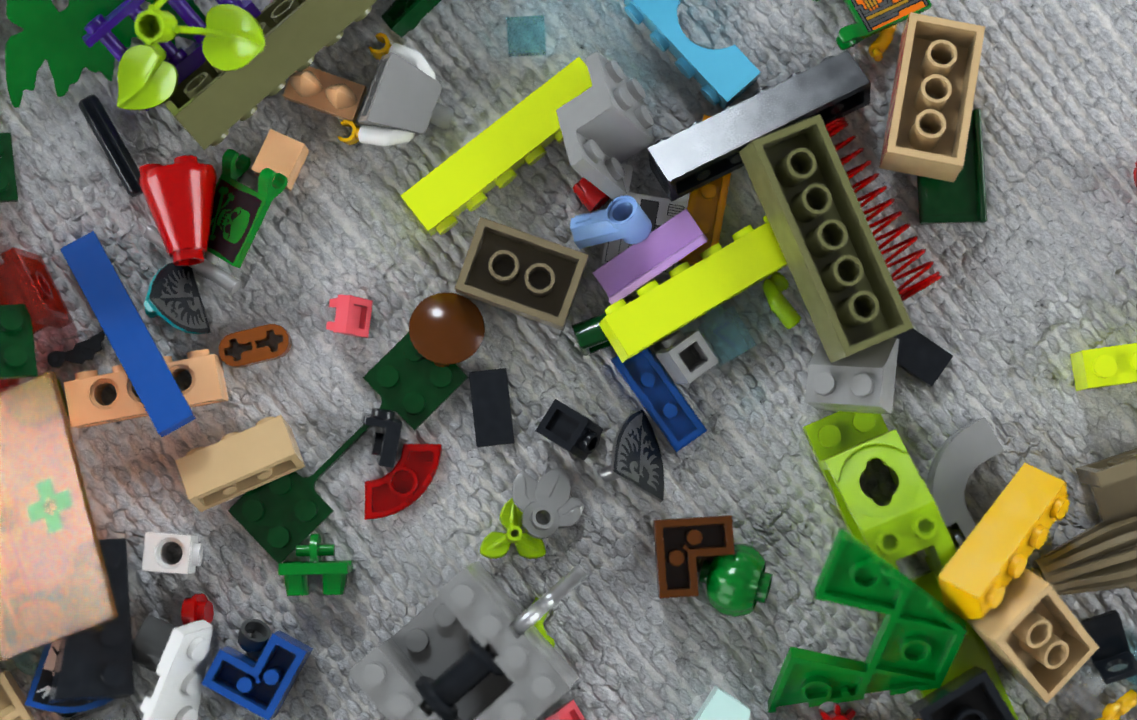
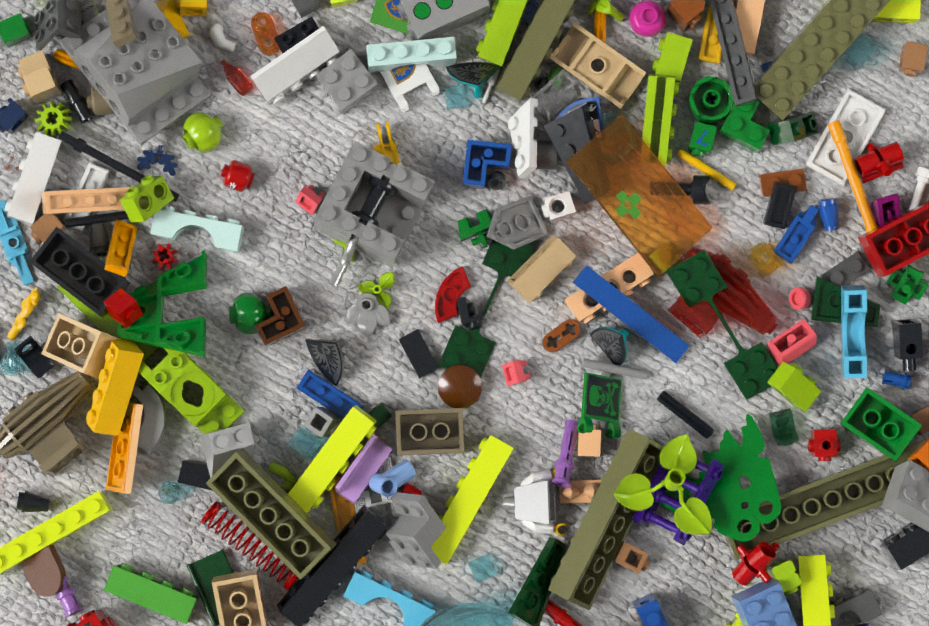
camera: 160 degrees right, 0 degrees up
(81, 352) = (655, 293): black piece -> none
(181, 205) = (630, 393): red cone -> none
(196, 609) = (532, 182): red plate -> none
(248, 550) = (517, 224): none -> light grey tile
(330, 140) = (564, 464): none -> medium lavender pin
(570, 430) = (370, 358): black bracket -> none
(941, 667) = (123, 308): none -> red brick
(971, 344) = (169, 492): none -> clear light blue tile
(1021, 434) = (124, 451): none -> light orange tile
(1060, 198) = (150, 593): none -> bright green brick

